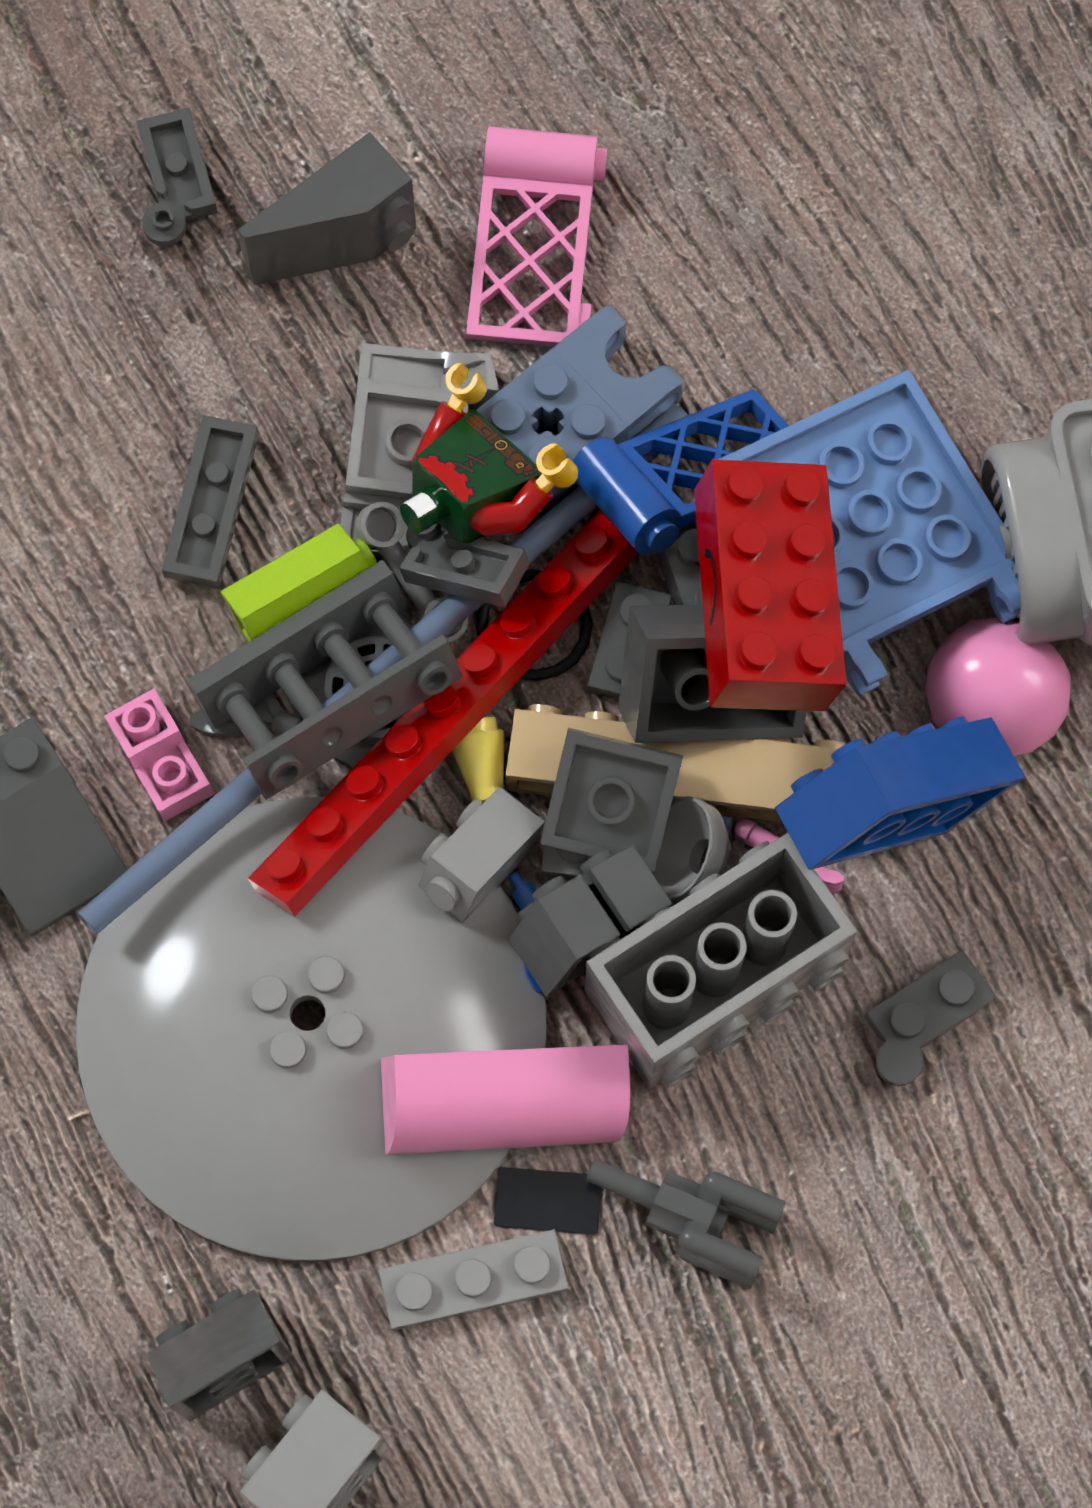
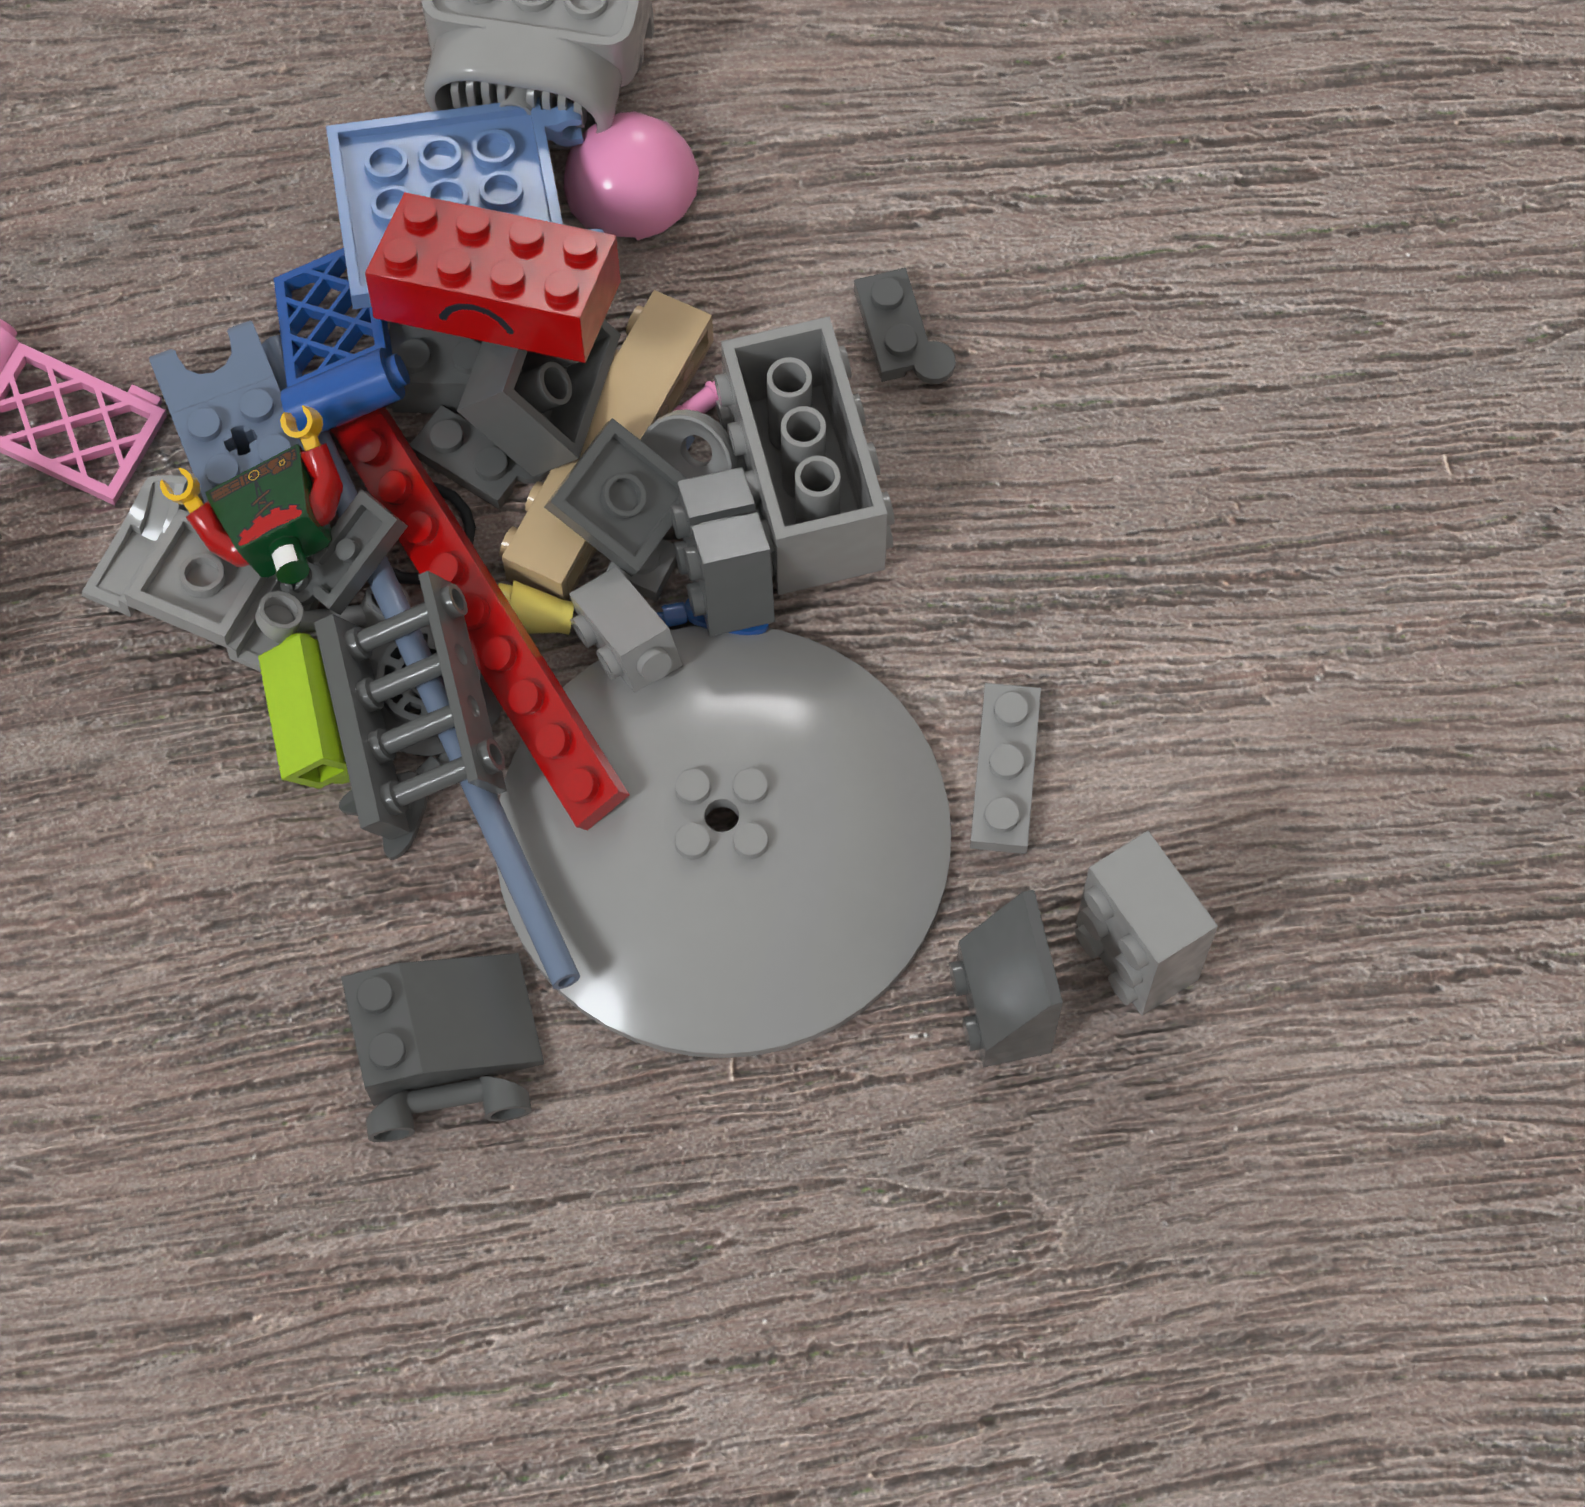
camera: 70 degrees left, 5 degrees down
(159, 755) = (413, 894): bright pink slope -> none
(210, 502) = (183, 770): dark grey plate -> none
(505, 1098) = (858, 675): bright pink brick -> none
(546, 1201) = (954, 687): black sticker -> none
(698, 1214) = (1017, 556): dark grey plant -> none
(897, 790) = (711, 253): blue brick -> none

